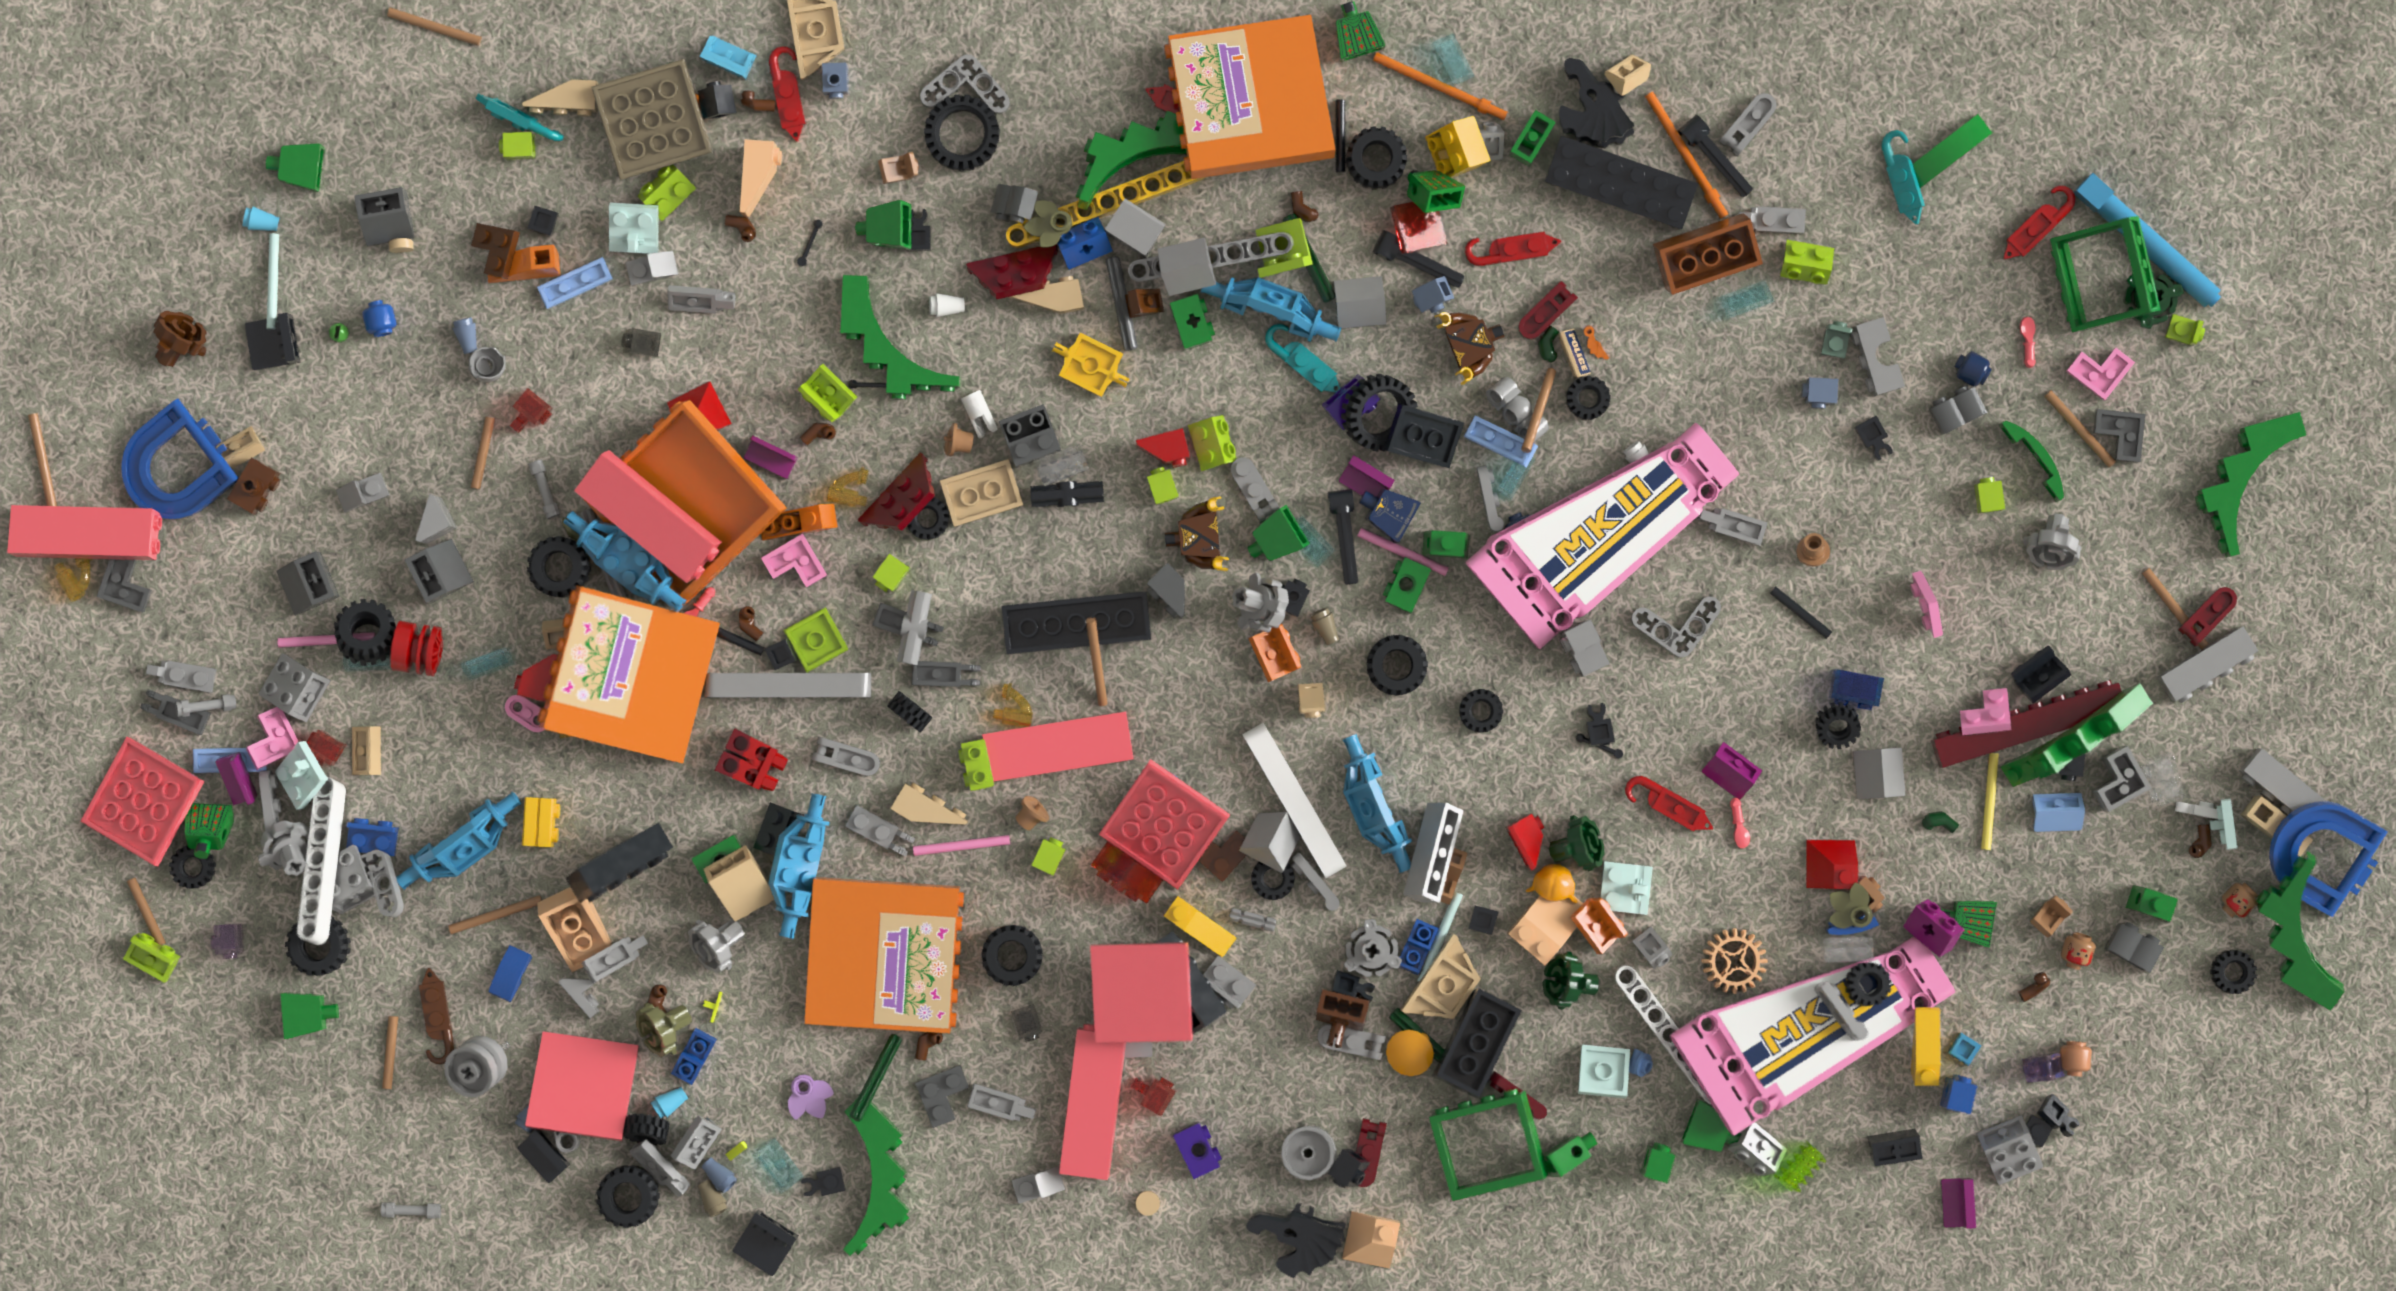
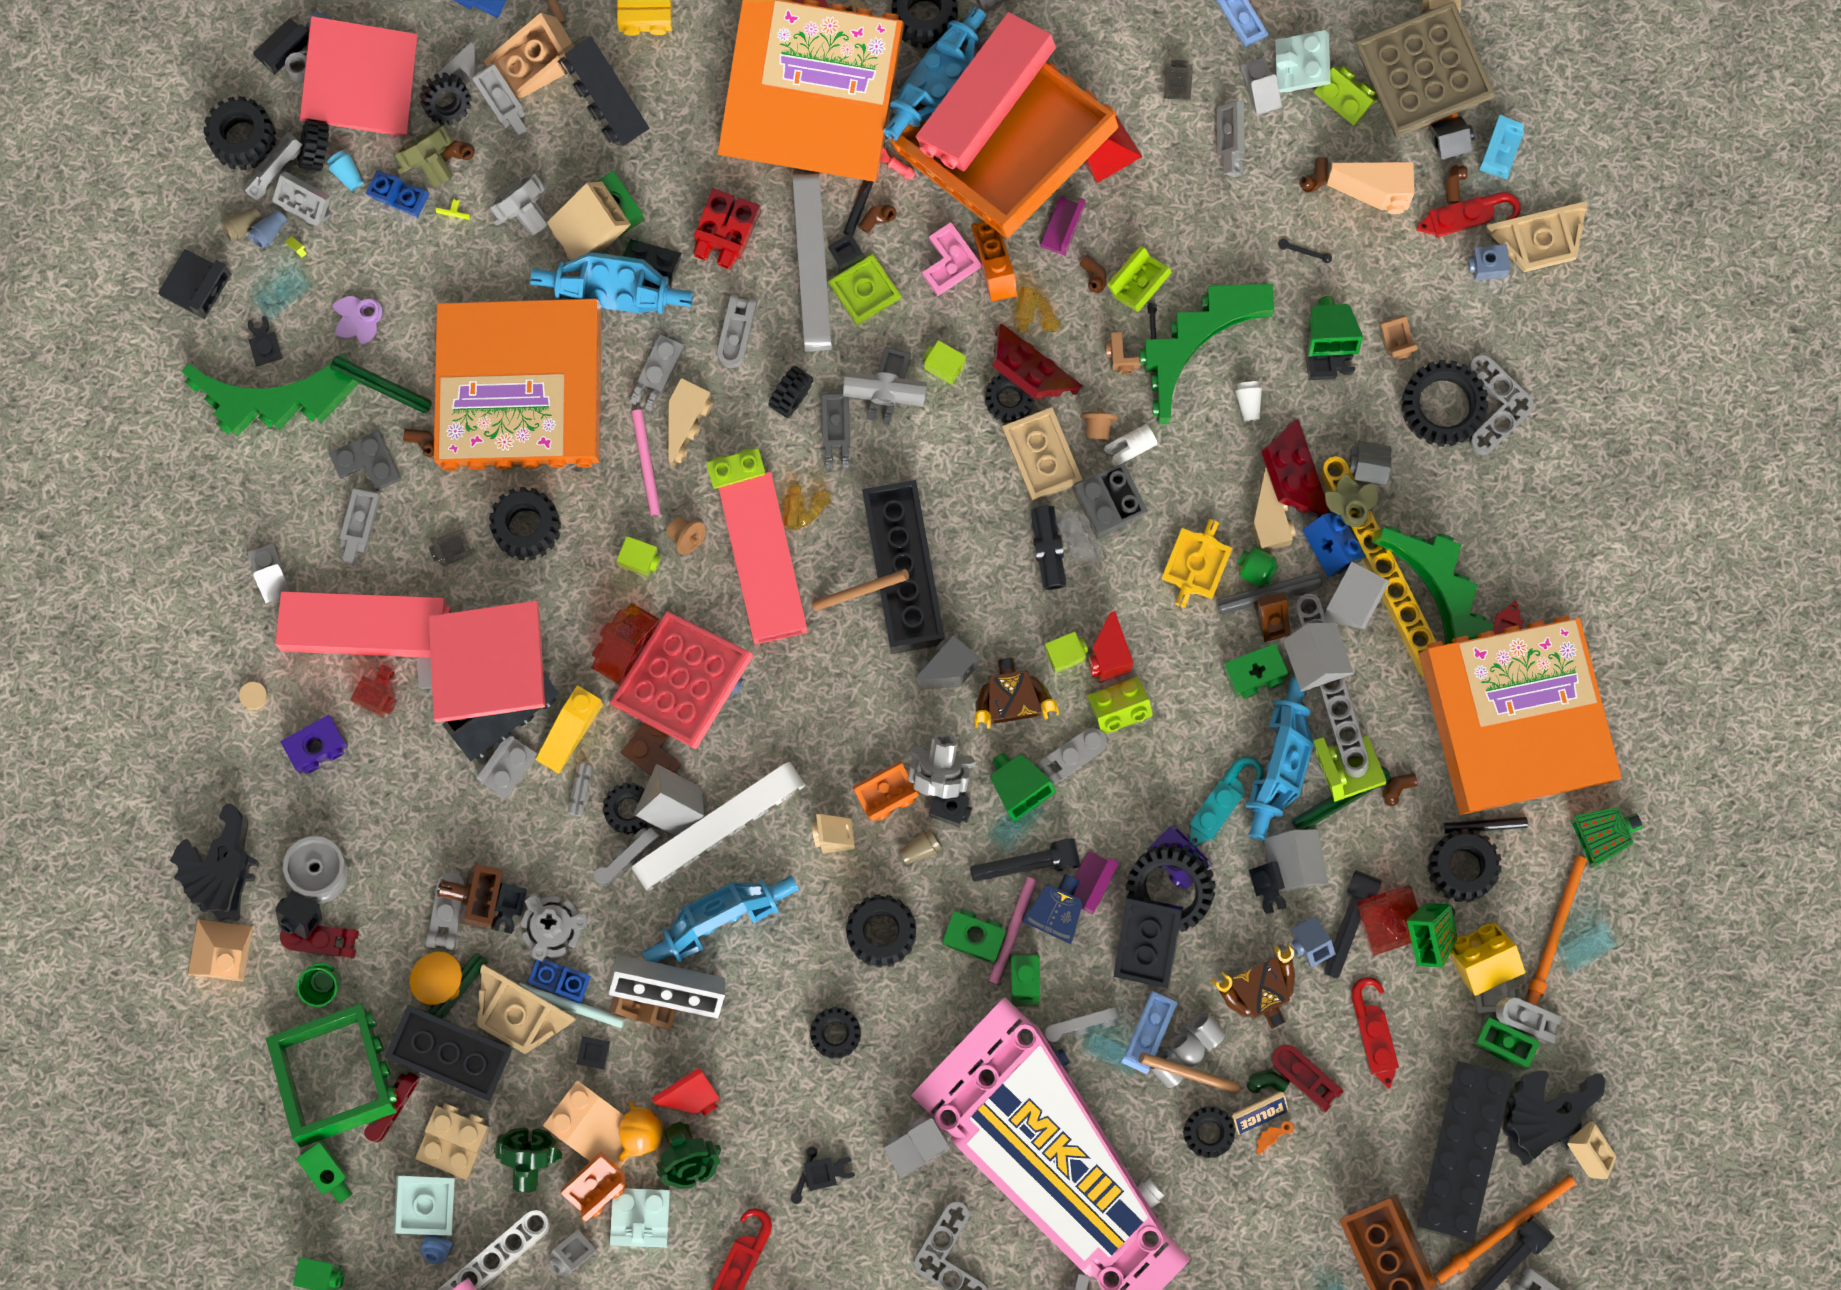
camera: 85 degrees right, 10 degrees down
(620, 1003) = (442, 85): none -> black tyre
(891, 420) = (1114, 350): none -> medium nougat bracket
(1098, 311) = (1257, 566): none -> green head
(1378, 328) = (1266, 883): none -> black plate
(1412, 1149) = (326, 980): none -> green helmet
(1512, 117) = (1528, 1018): none -> light grey plate
(1550, 1044) = (452, 1141): none -> tan plate

